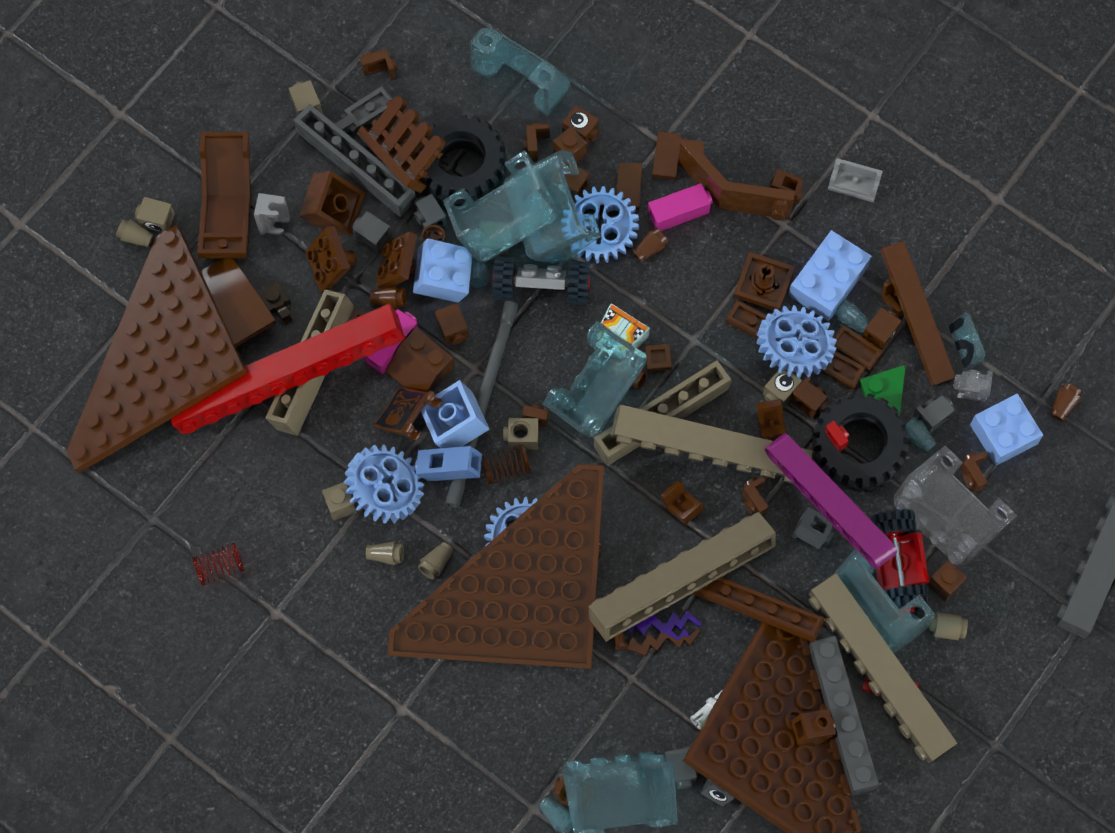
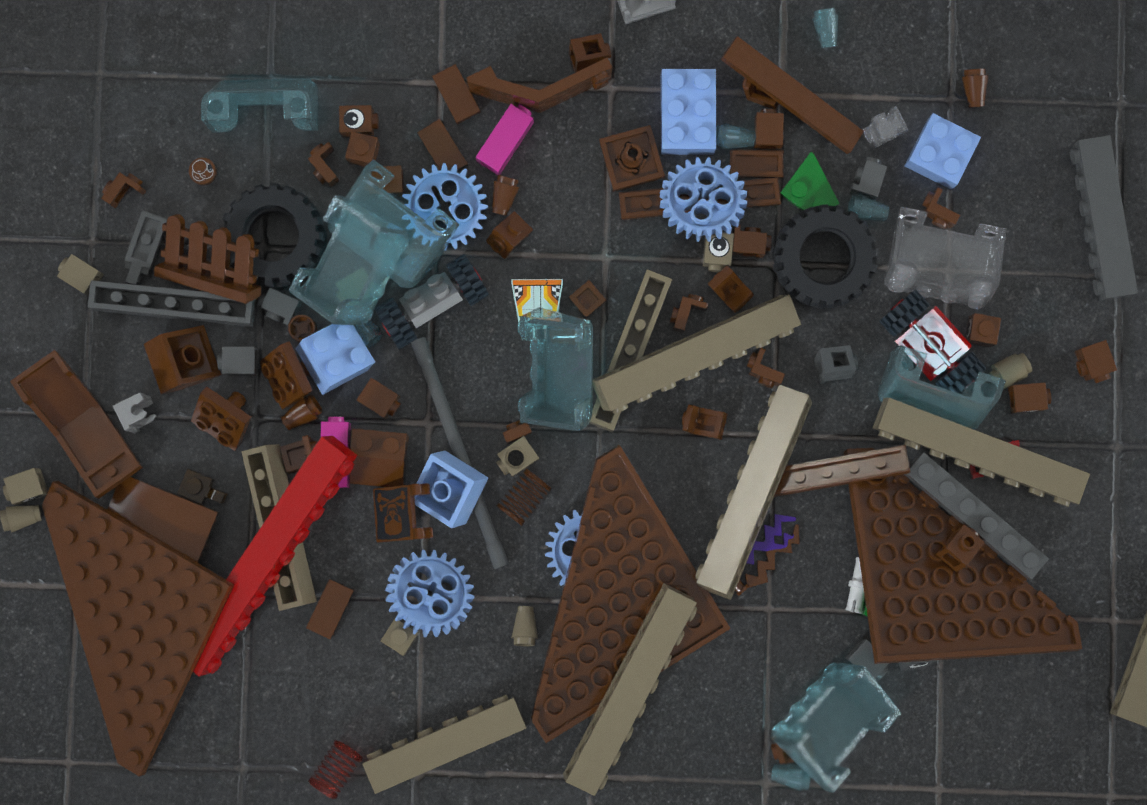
camera: 40 degrees left, 15 degrees up
(303, 449) = (330, 609): none -> reddish brown tile
(312, 603) = (444, 744): none -> dark tan brick
(387, 552) = (477, 651): dark tan cone -> none
(445, 90) = (202, 171): none -> reddish brown tile
(448, 463) = (474, 534): medium blue brick -> none
(480, 655) = (629, 689): none -> dark tan brick
(633, 274) = (508, 235): none -> reddish brown bracket
(721, 415) = (680, 315): none -> reddish brown bracket
(831, 501) = (844, 338): magenta beam -> none
(837, 435) = (808, 270): red plate -> none
(949, 656) = (1029, 397): none -> reddish brown brick
(967, 341) = (851, 88): clear light blue slope -> none
(979, 284) = (826, 27): none -> clear light blue cone
(1021, 665) = (1095, 362): none -> reddish brown brick

